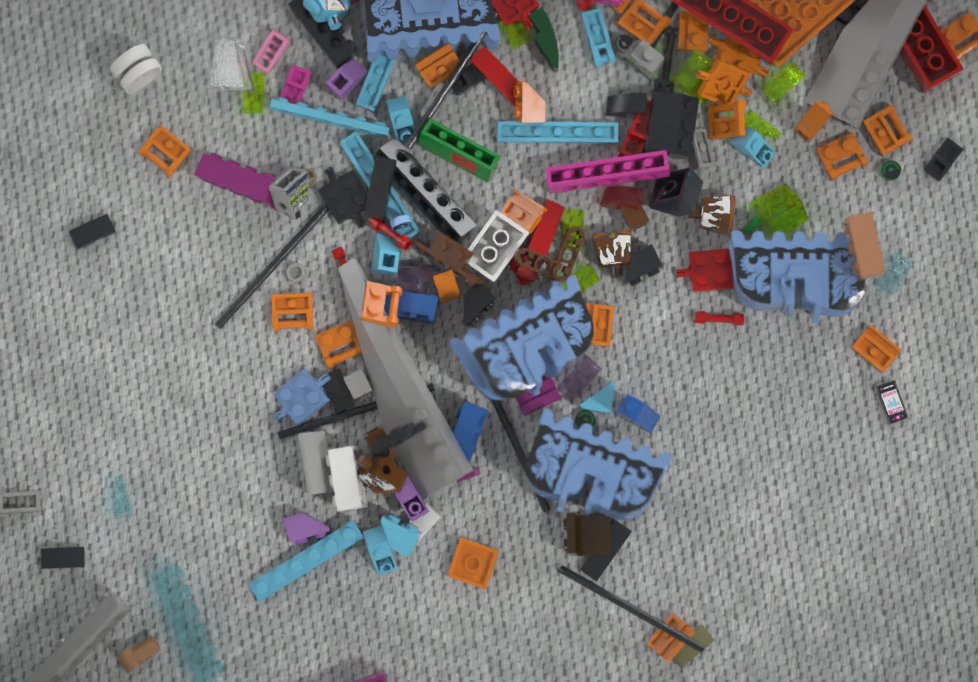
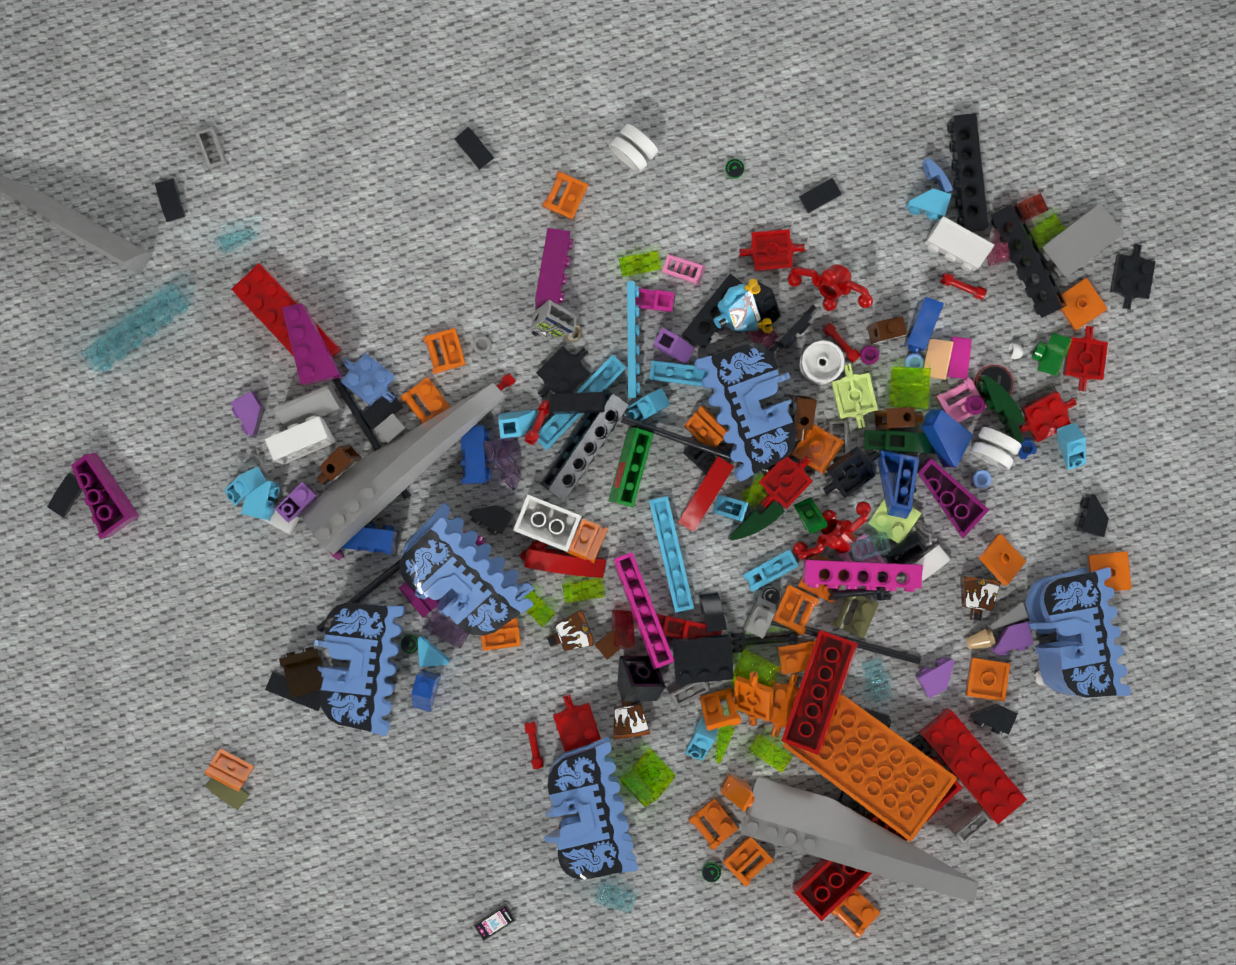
camera: 70 degrees right, 5 degrees up
(134, 656) = (100, 291): medium nougat piece -> none
(218, 465) = (266, 298): none -> red brick
(230, 67) = (658, 236): clear slope -> none
(258, 441) = (309, 349): none -> magenta wedge
(272, 266) = (483, 322): black piece -> none
(306, 560) = (219, 421): medium azure plate -> none
(374, 304) = (463, 425): orange plate -> none
(381, 474) = (309, 462): reddish brown torso -> none
(396, 437) = (341, 478): black plate -> none
(400, 222) = (549, 430): light blue tile -> none
(446, 286) = (499, 487): orange slope -> none
(452, 253) = (529, 485): reddish brown bracket -> none
(473, 563) = (254, 573): orange plate -> none
(525, 61) = (730, 507): none -> medium azure slope
(529, 104) = (688, 522): slope -> none
(553, 265) = (543, 581): reddish brown beam -> none
(632, 609) = (245, 729): black piece -> none
(643, 263) = (566, 662): black slope -> none
(752, 224) = (628, 755): green tile -> none
(864, 246) = (622, 871): nougat brick -> none
(876, 348) = (540, 896): orange plate -> none
(943, 159) = (733, 918): black slope -> none

